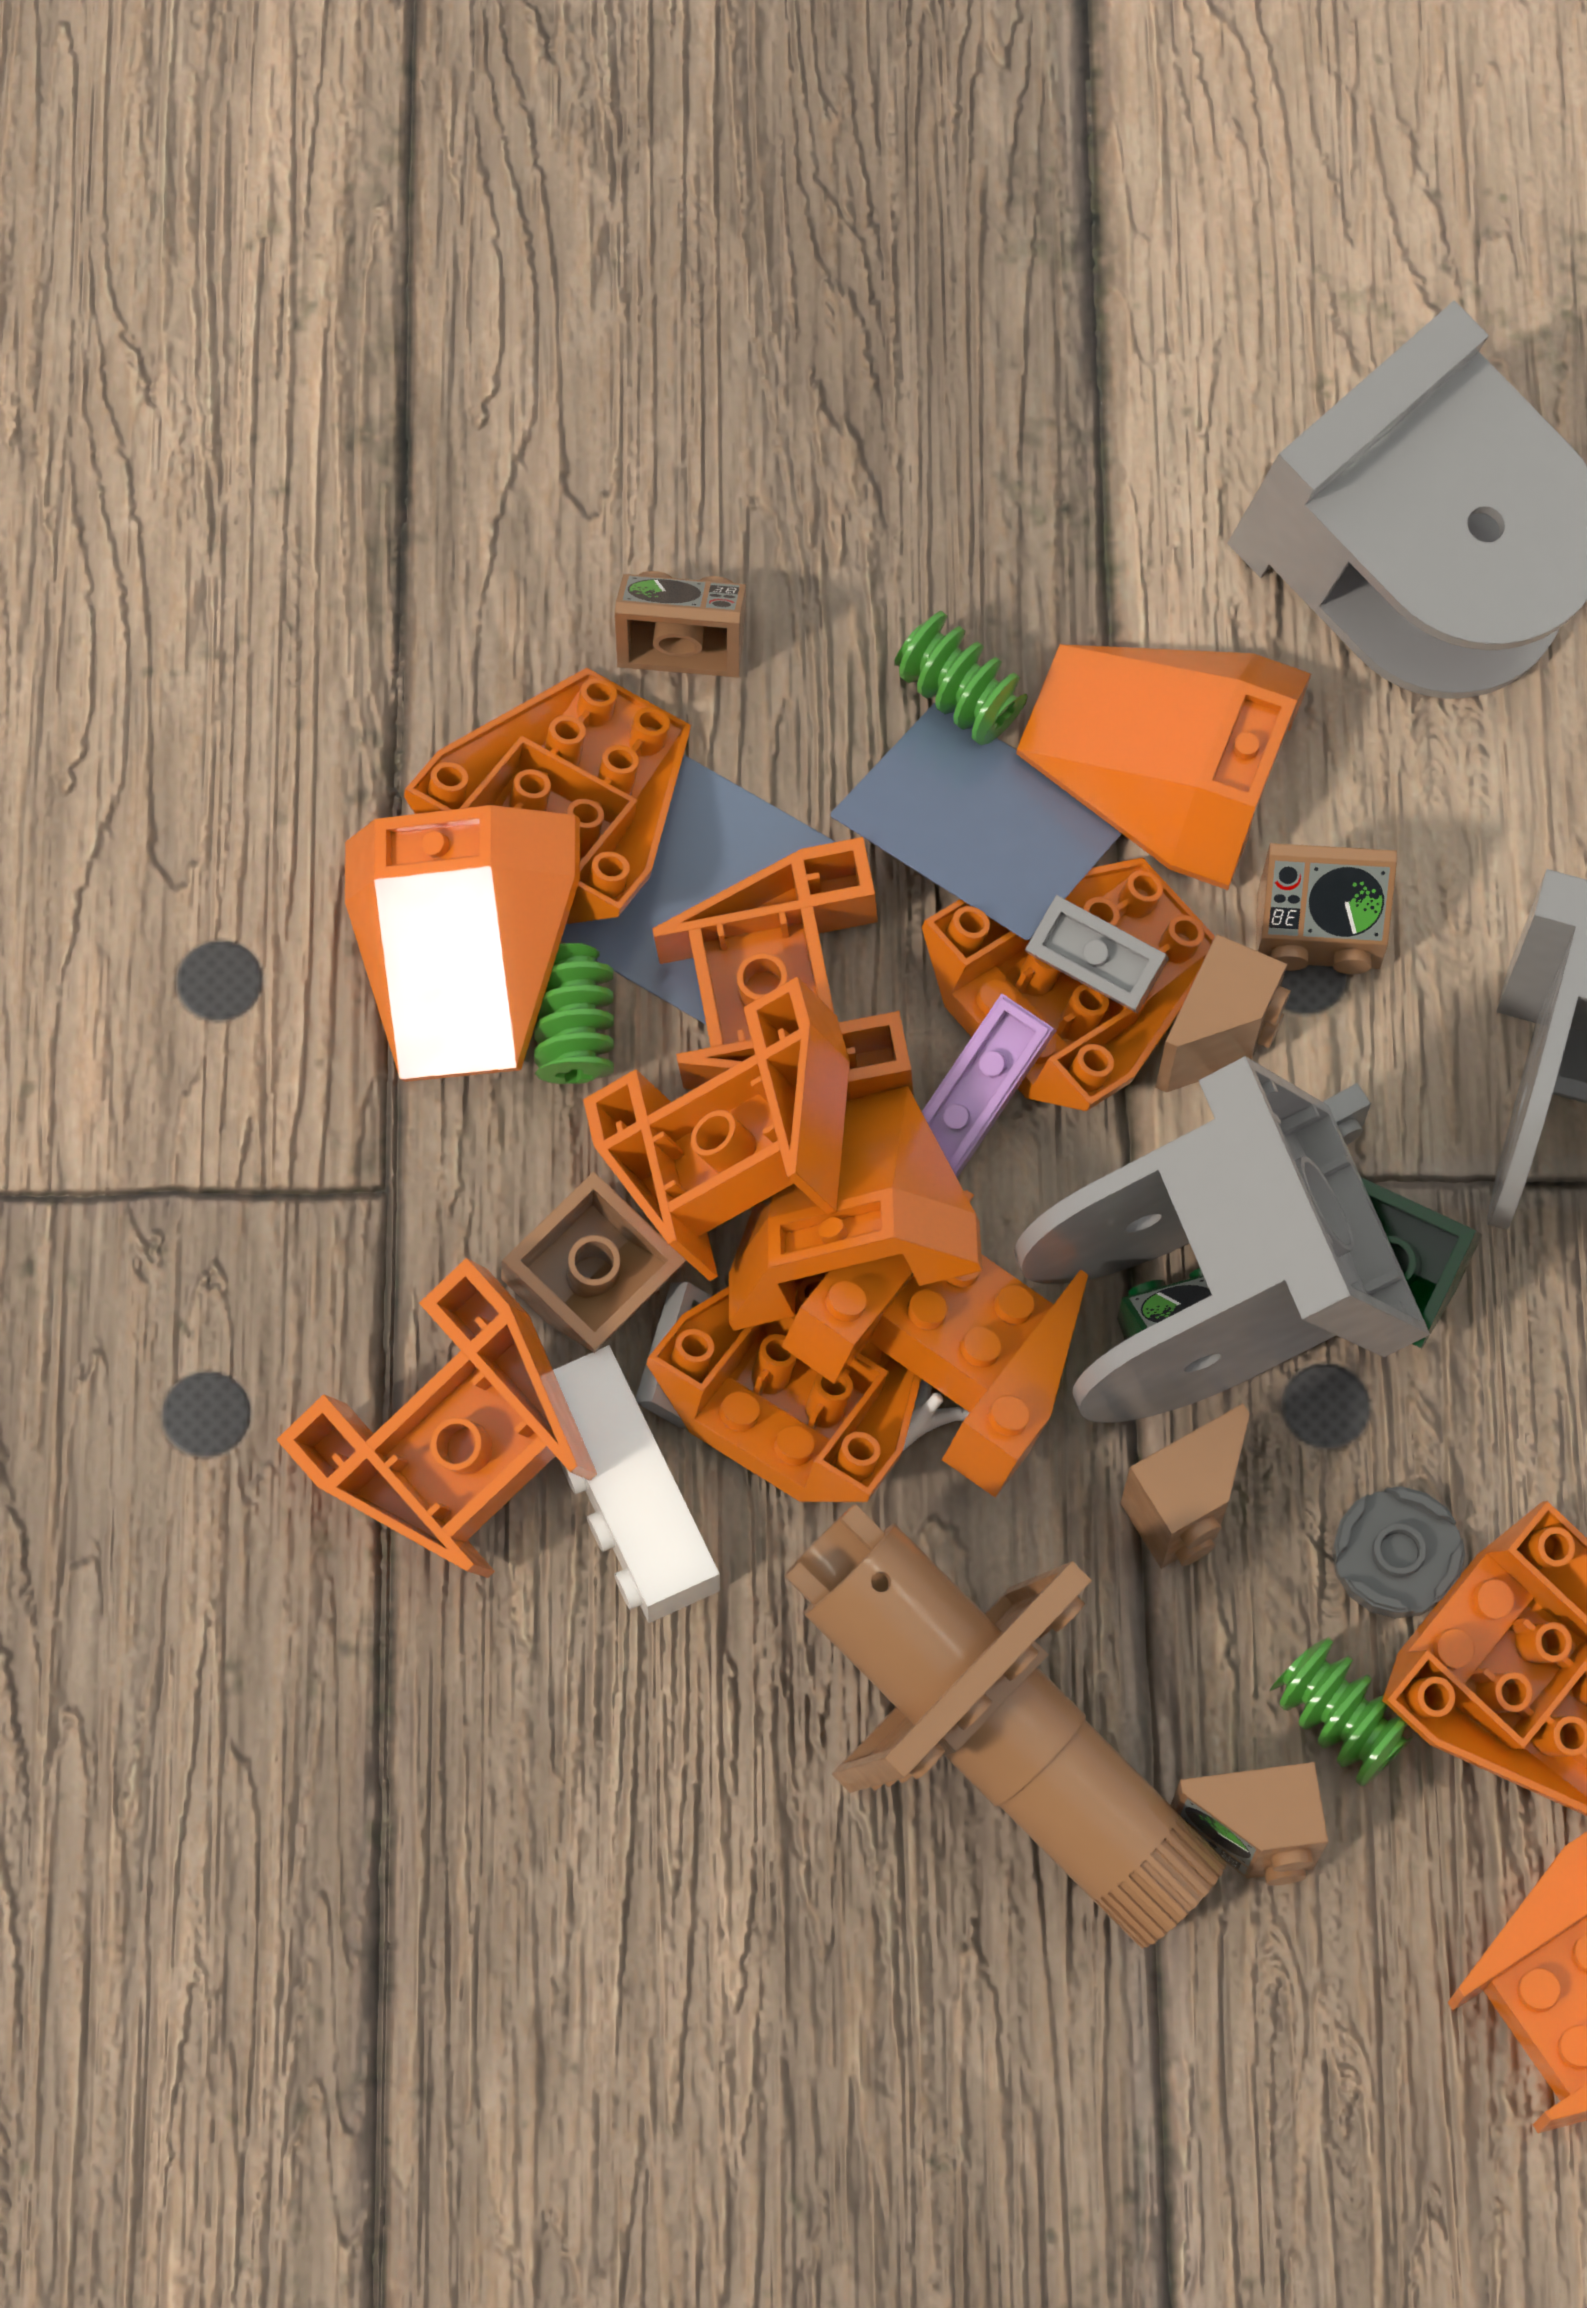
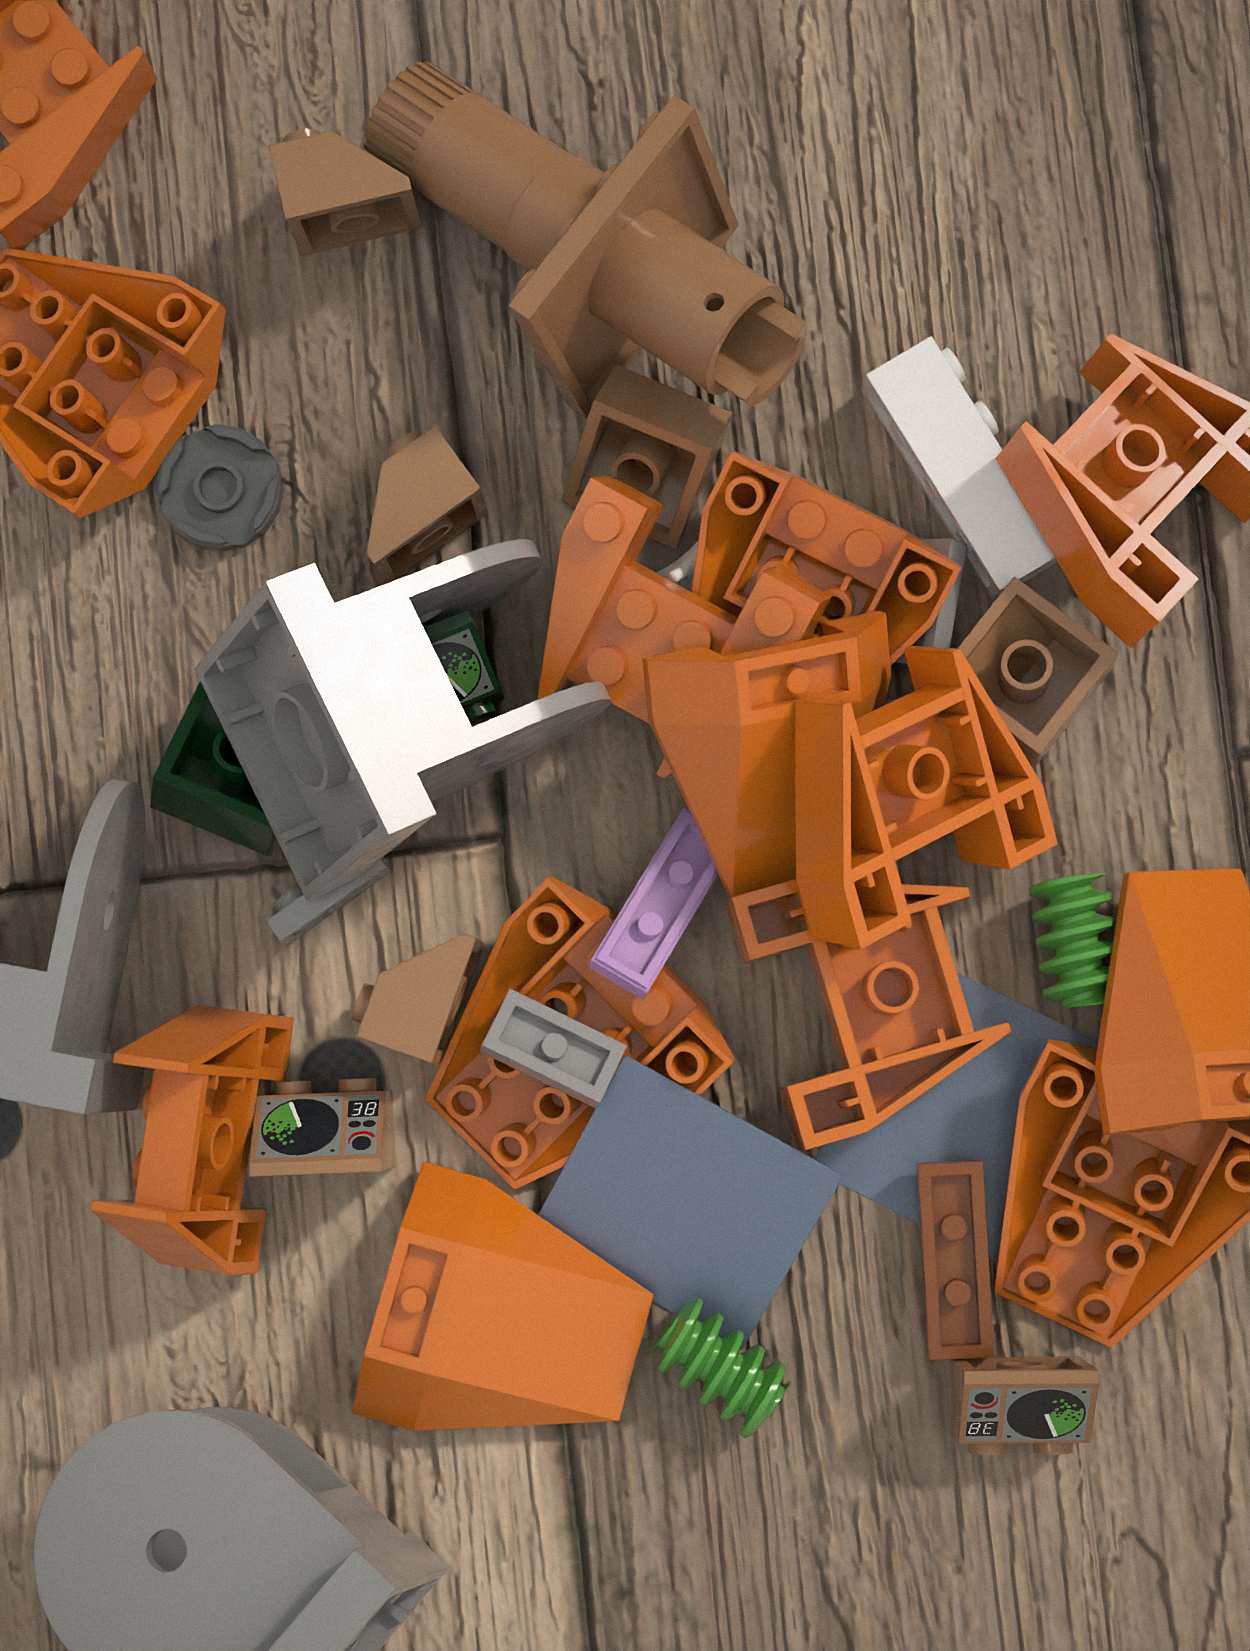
camera: 175 degrees left, 15 degrees up
(726, 752) = (955, 1260): none -> dark orange plate
(961, 1524) = (651, 441): none -> medium nougat slope
(1342, 1710) = (266, 324): bright green piece -> none
(1442, 921) = (199, 1138): none -> orange wedge

